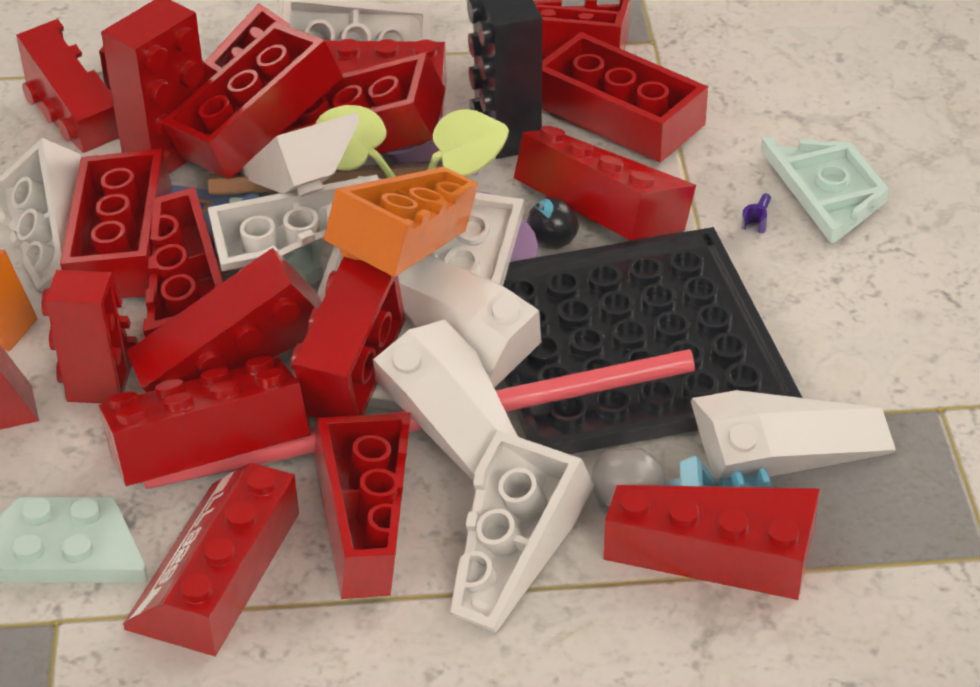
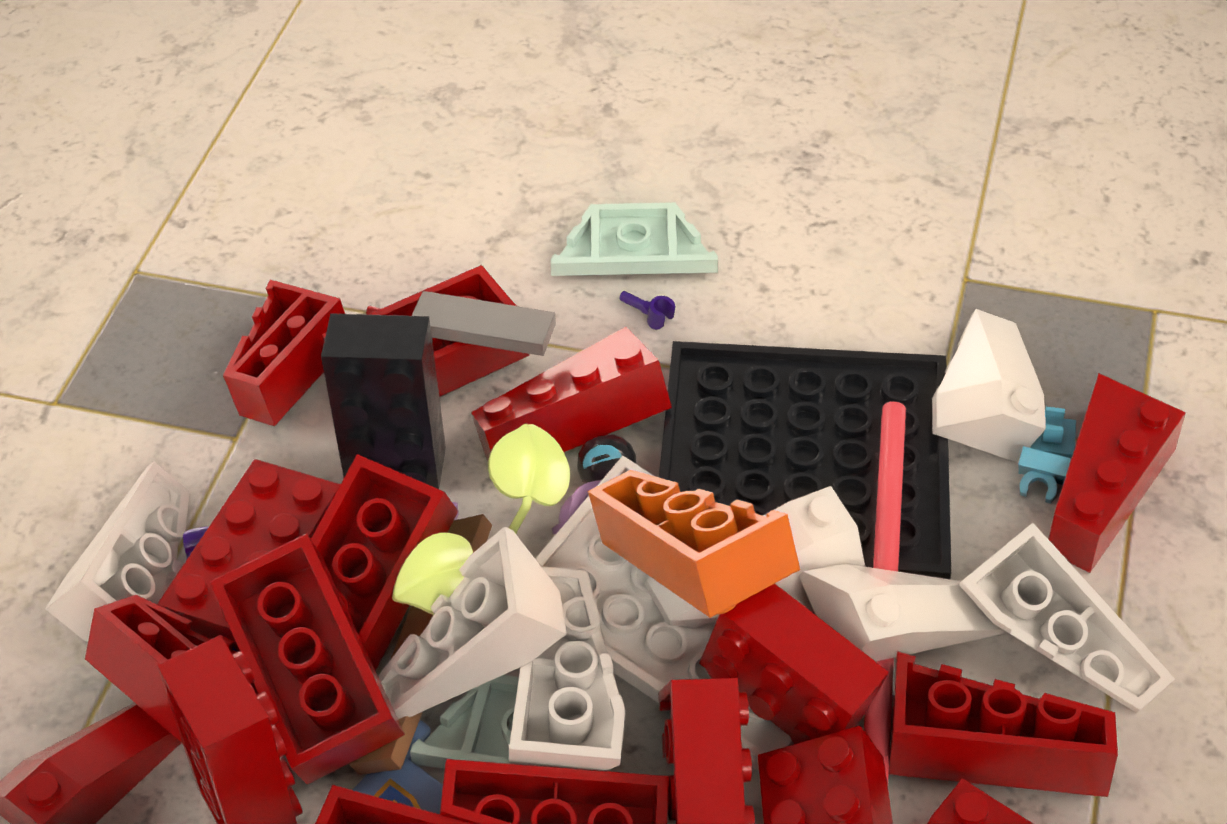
camera: 70 degrees left, 5 degrees up
(624, 467) = (1007, 510): light grey hair -> none
(634, 99) = (487, 323): none -> light grey tile

